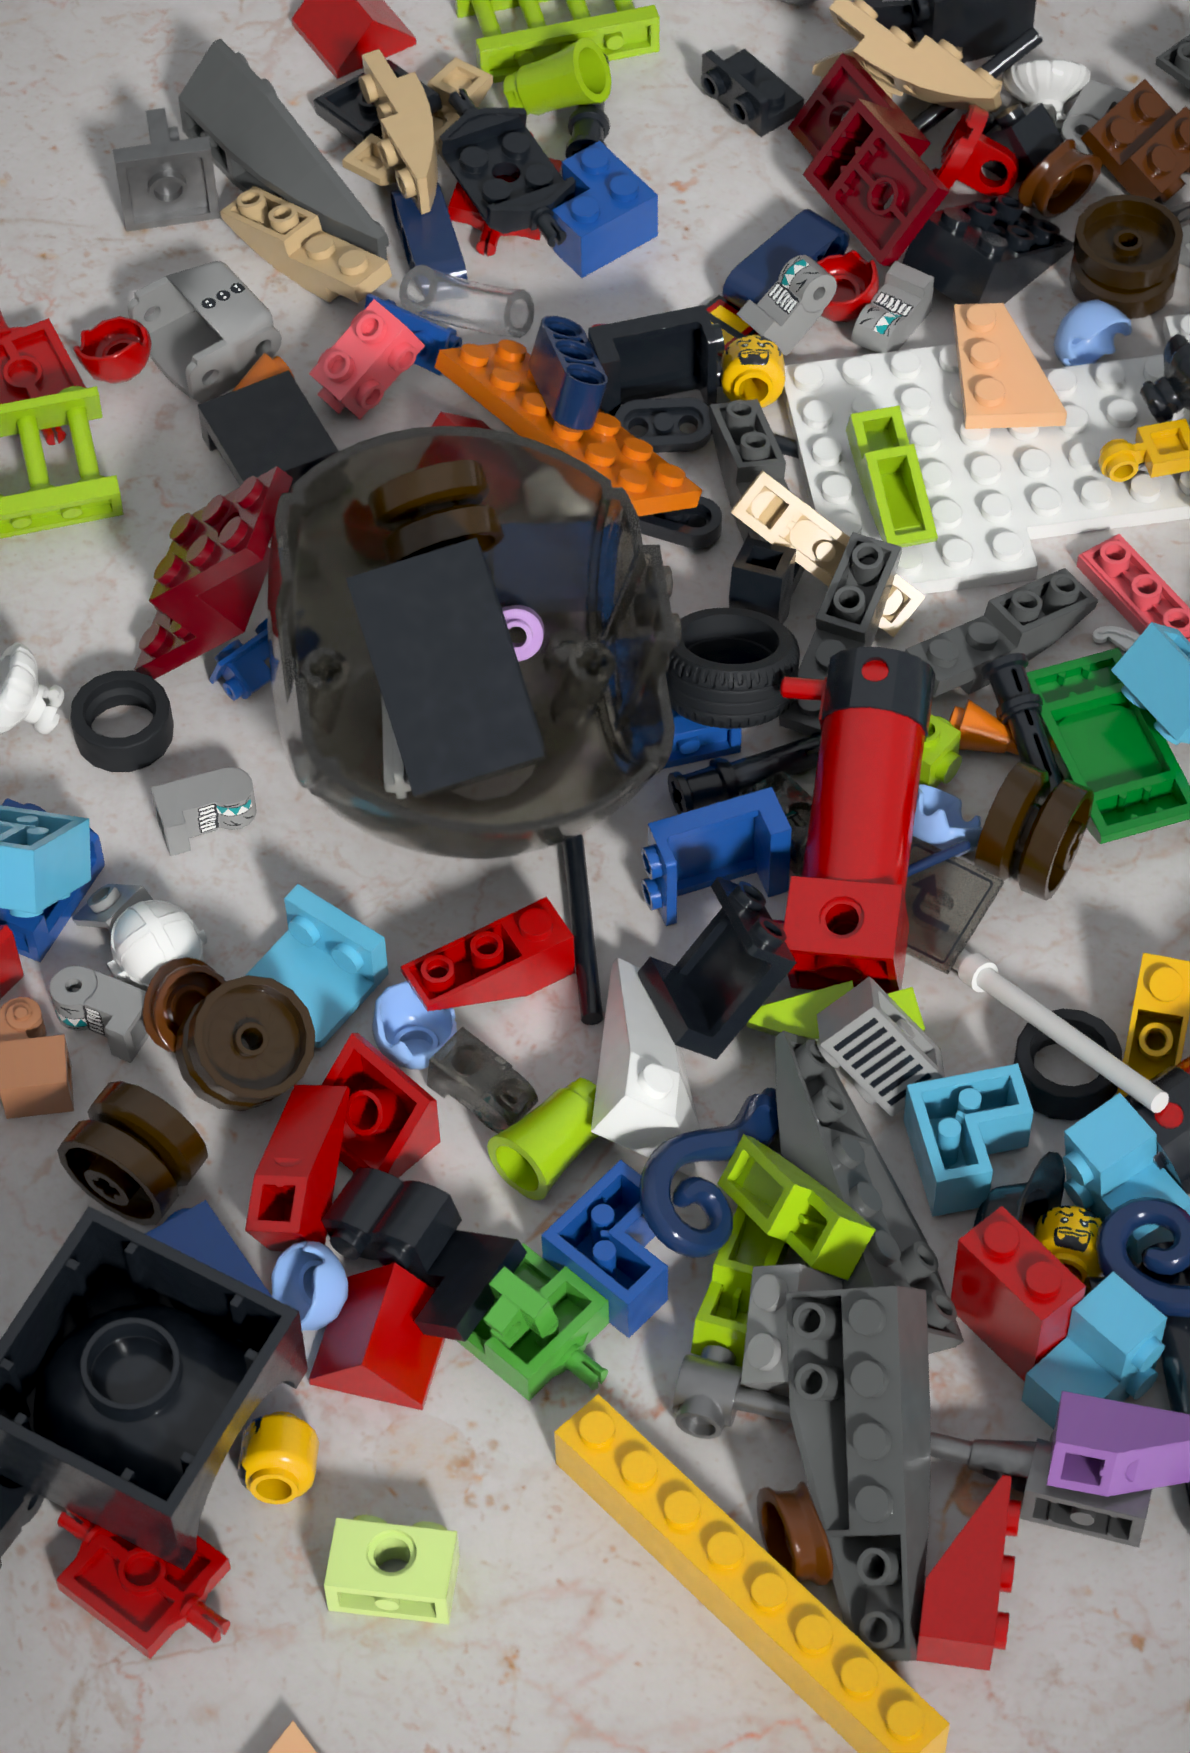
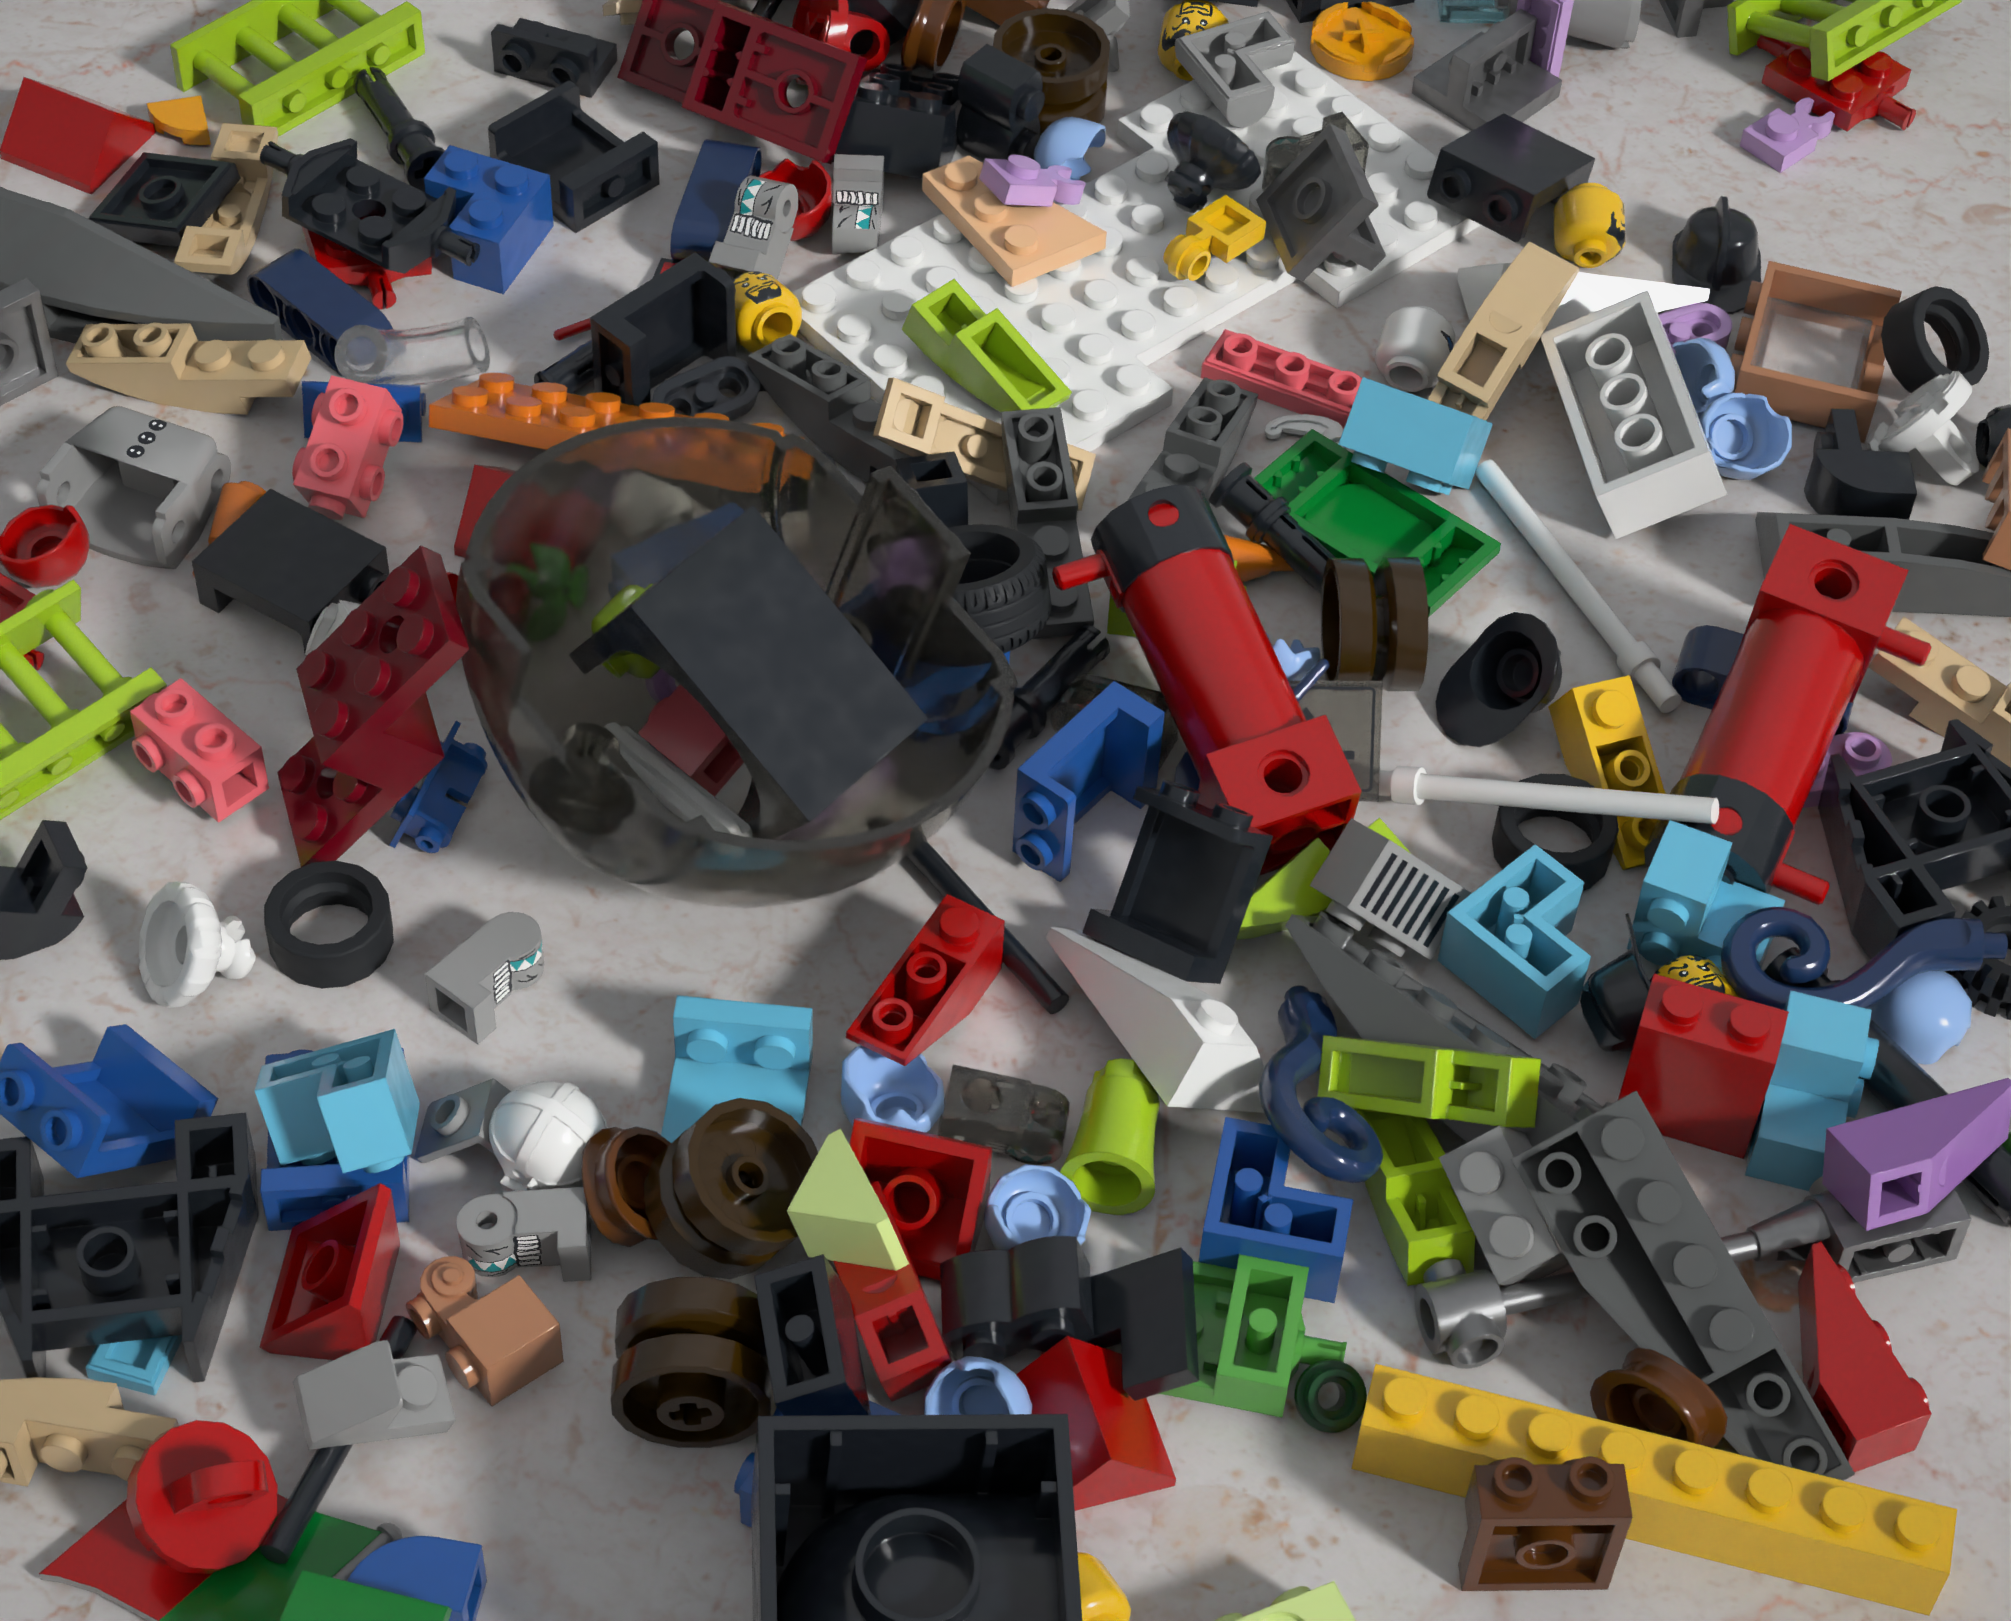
camera: 35 degrees left, 5 degrees down
(115, 552) = (198, 750): none -> coral brick
(200, 1181) = (811, 1341): none -> black brick
(299, 1092) = (841, 1213): none -> yellowish green slope
(405, 126) = (242, 201): tan slope -> none
(435, 510) = (629, 531): dark brown wheel -> none
(437, 41) = (181, 118): none -> light orange tile
(453, 1161) = (1034, 1205): none -> light blue hair
(517, 1309) = (1240, 1311): bright green tile -> none
(552, 1394) = (1350, 1402): none -> dark green plate
(561, 80) = (359, 103): lime plant -> none
(567, 372) = (592, 371): dark blue beam -> none
(632, 1570) = (1544, 1525): none -> reddish brown plate
(702, 184) = (586, 163): none -> black panel
(1024, 346) = (1025, 183): none -> lavender plate
(1055, 268) = (998, 105): none -> black brick
(1112, 922) = (1499, 680): none -> black piece

